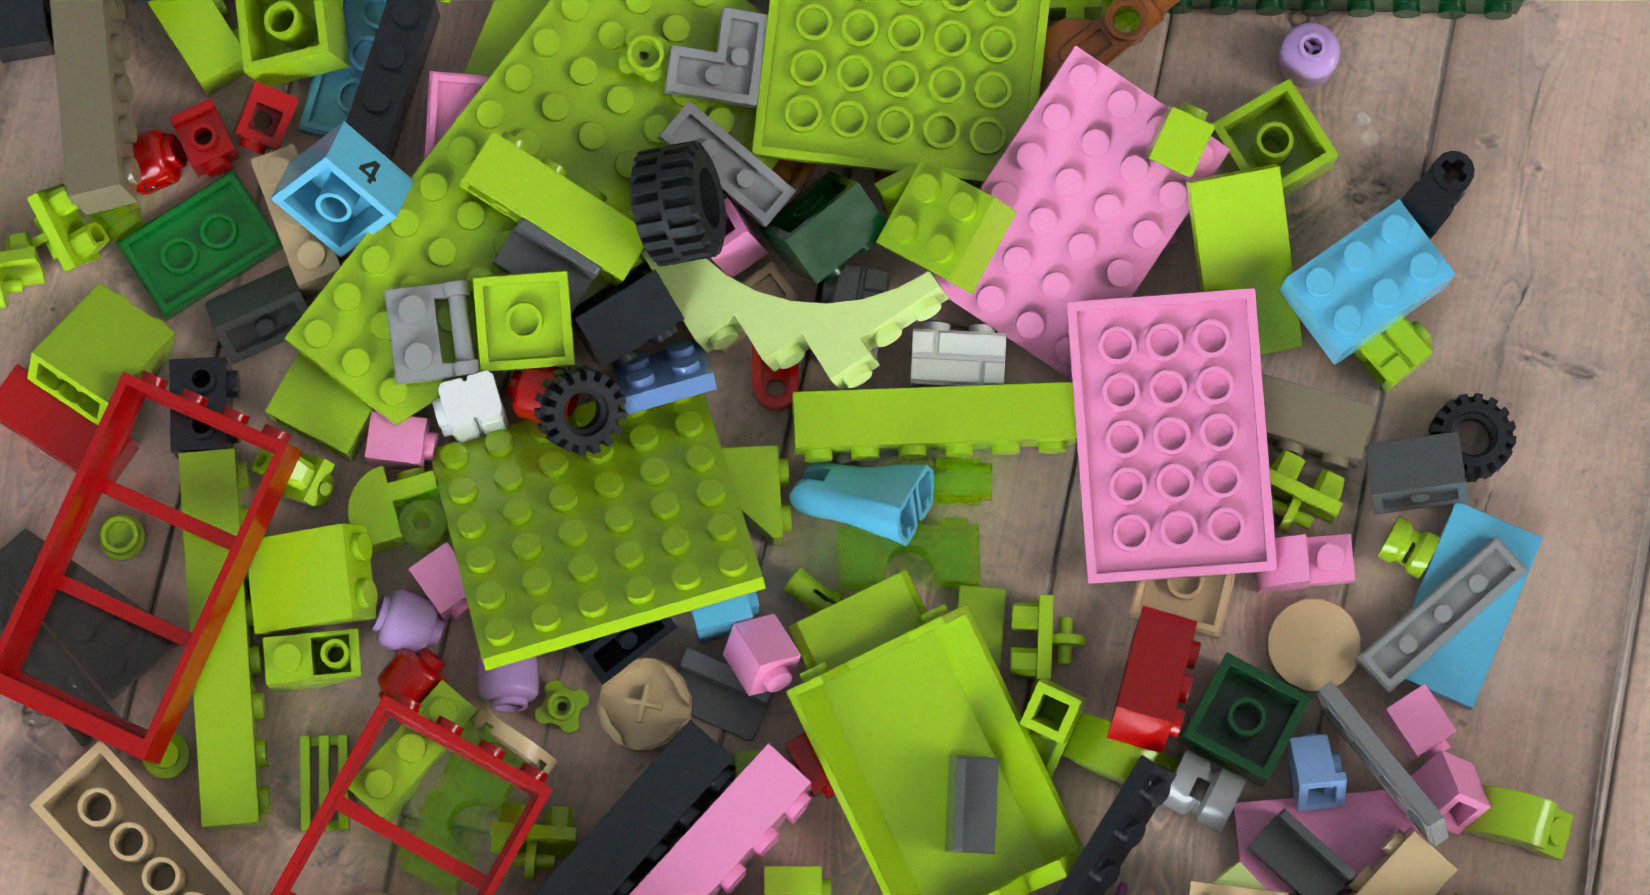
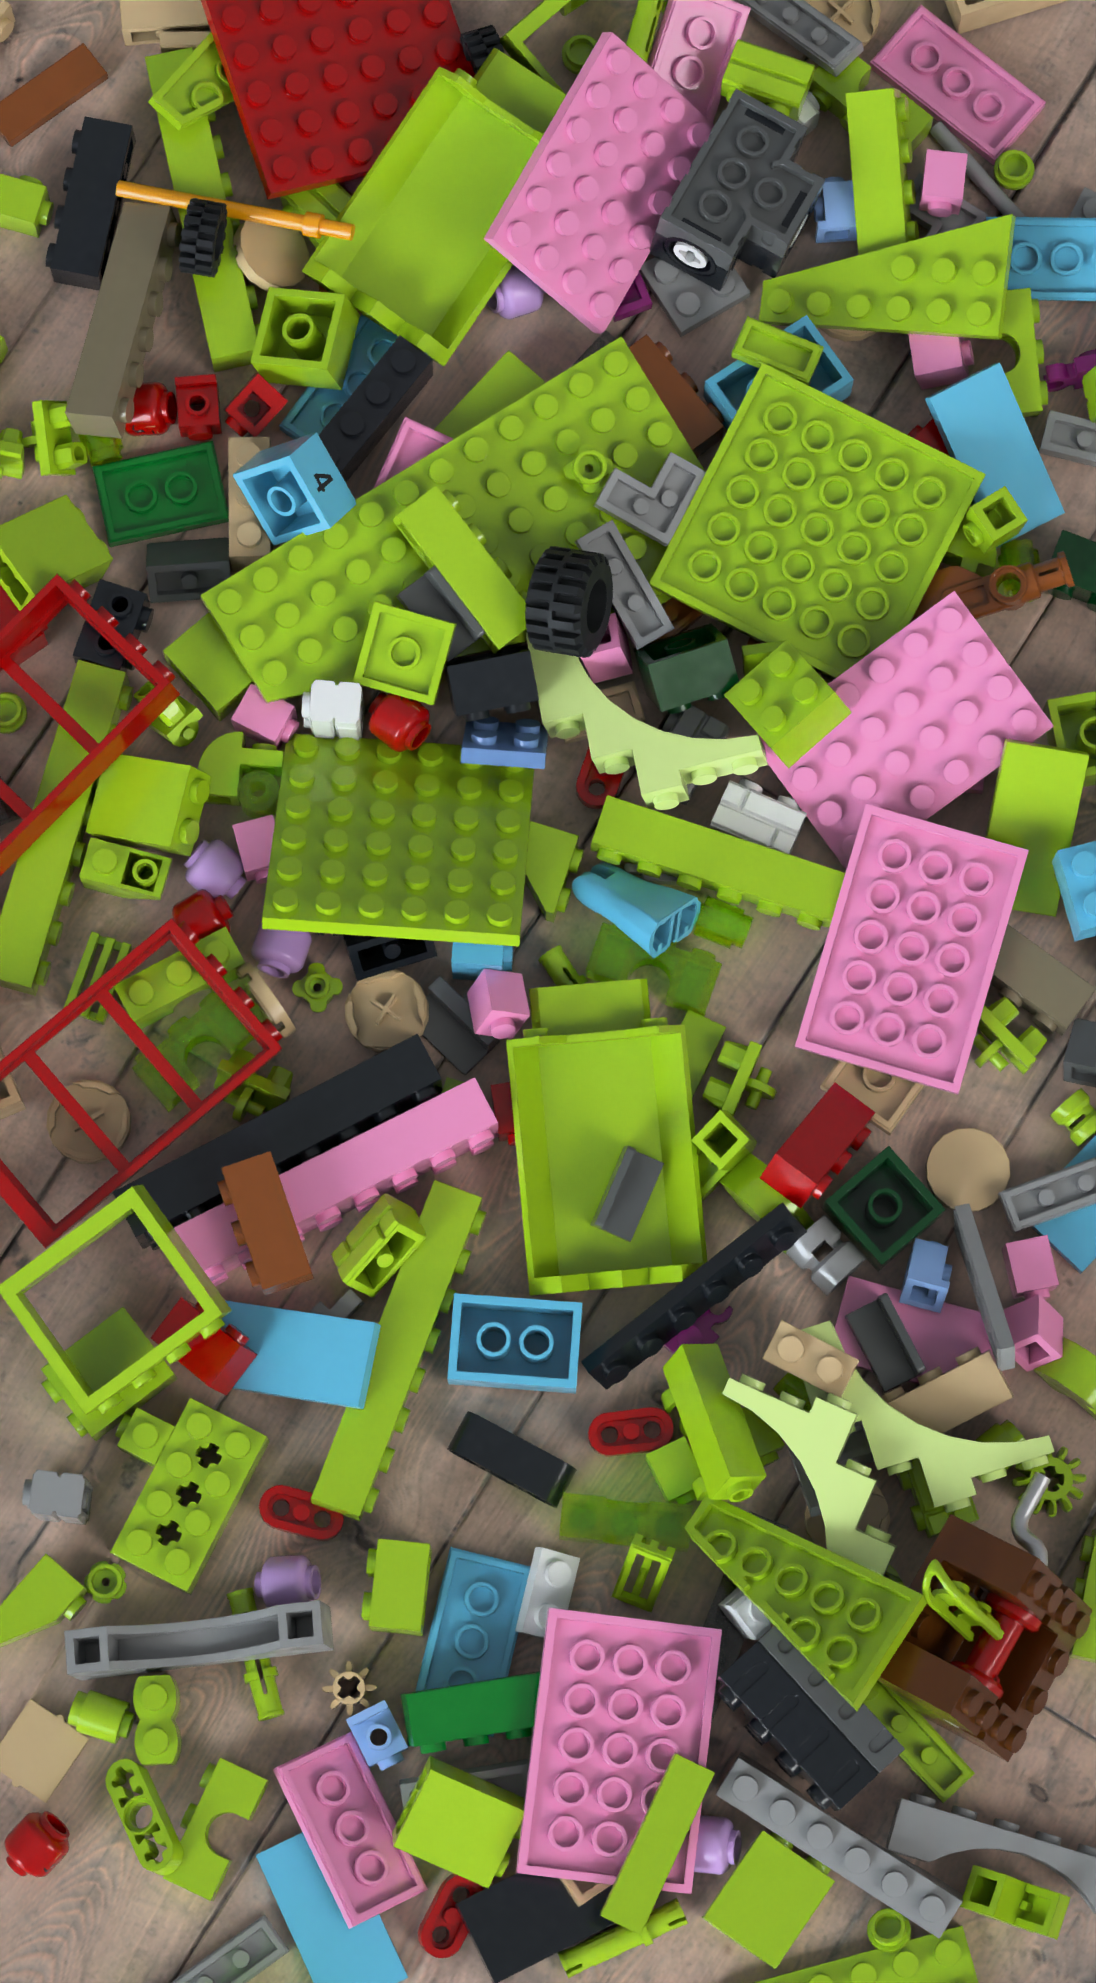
camera: 20 degrees right, 0 degrees up
(416, 335) = (310, 633): light grey plate -> none
(602, 425) = (440, 761): black tyre -> none
(1180, 138) = (1012, 700): lime brick -> none
(1308, 563) = (989, 1099): bright pink brick -> none

